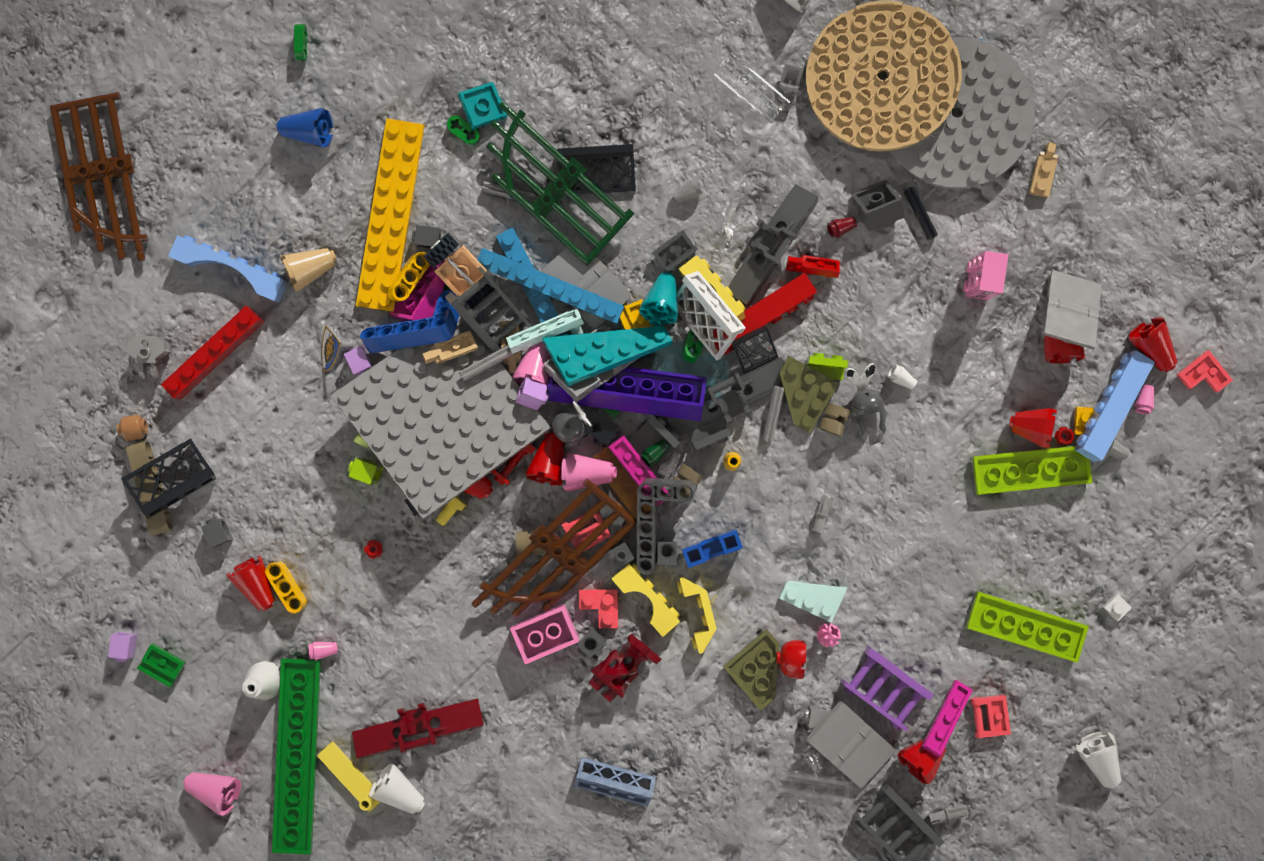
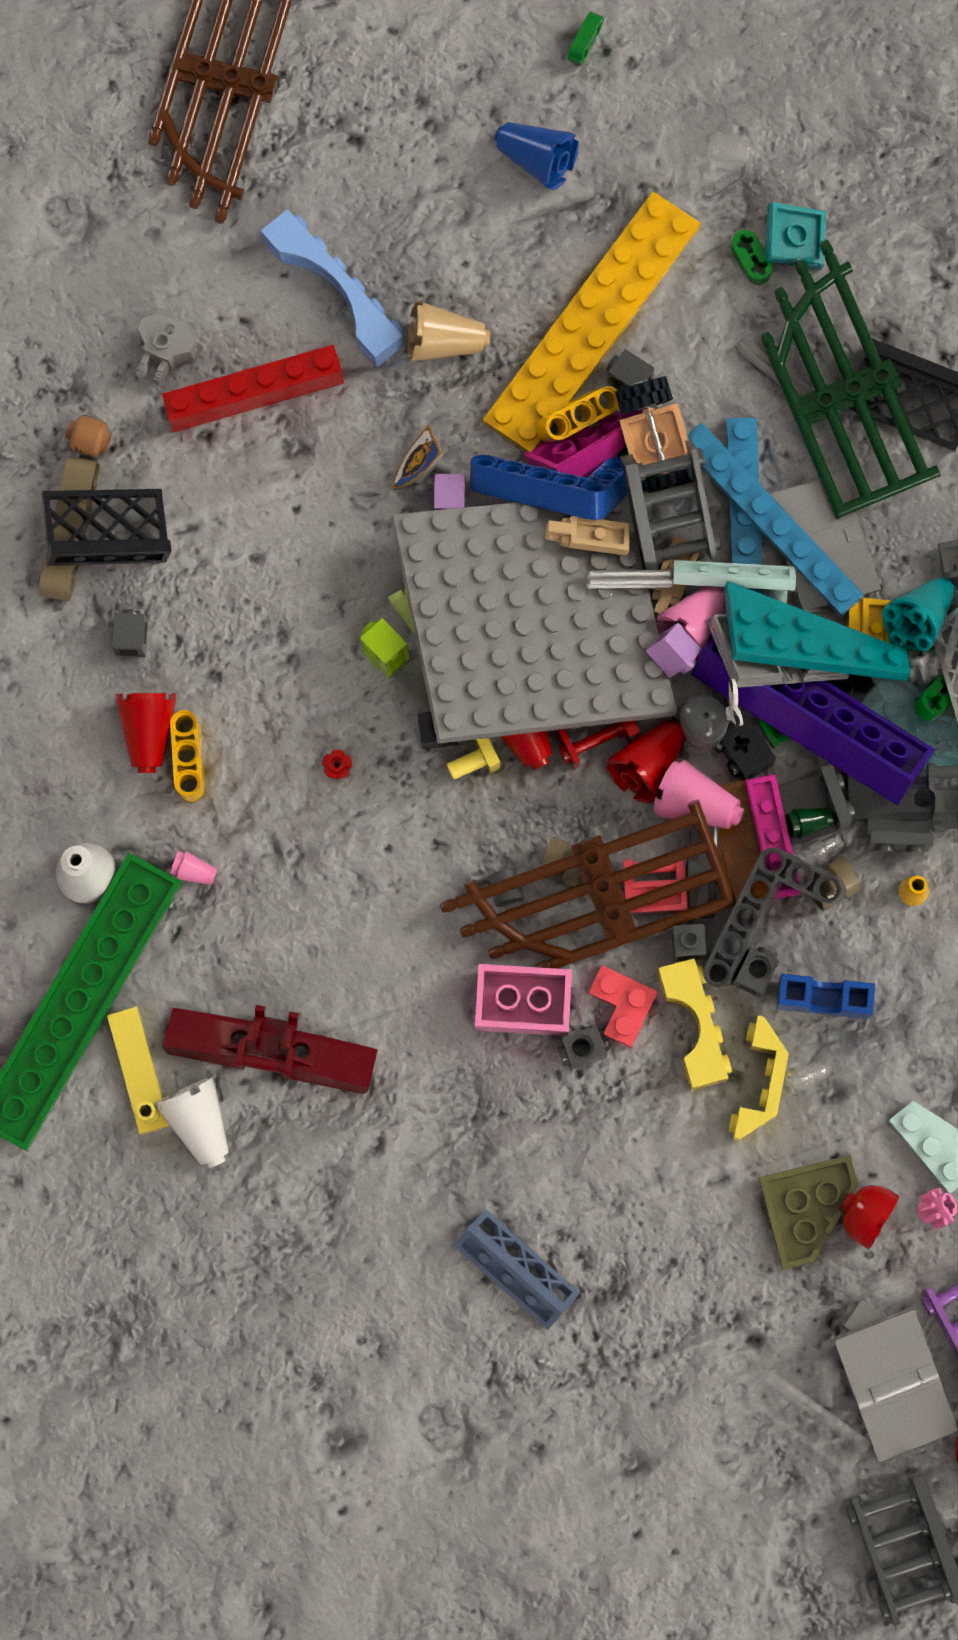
camera: 30 degrees right, 10 degrees down
(613, 668) = (588, 1106): dark red hips -> none

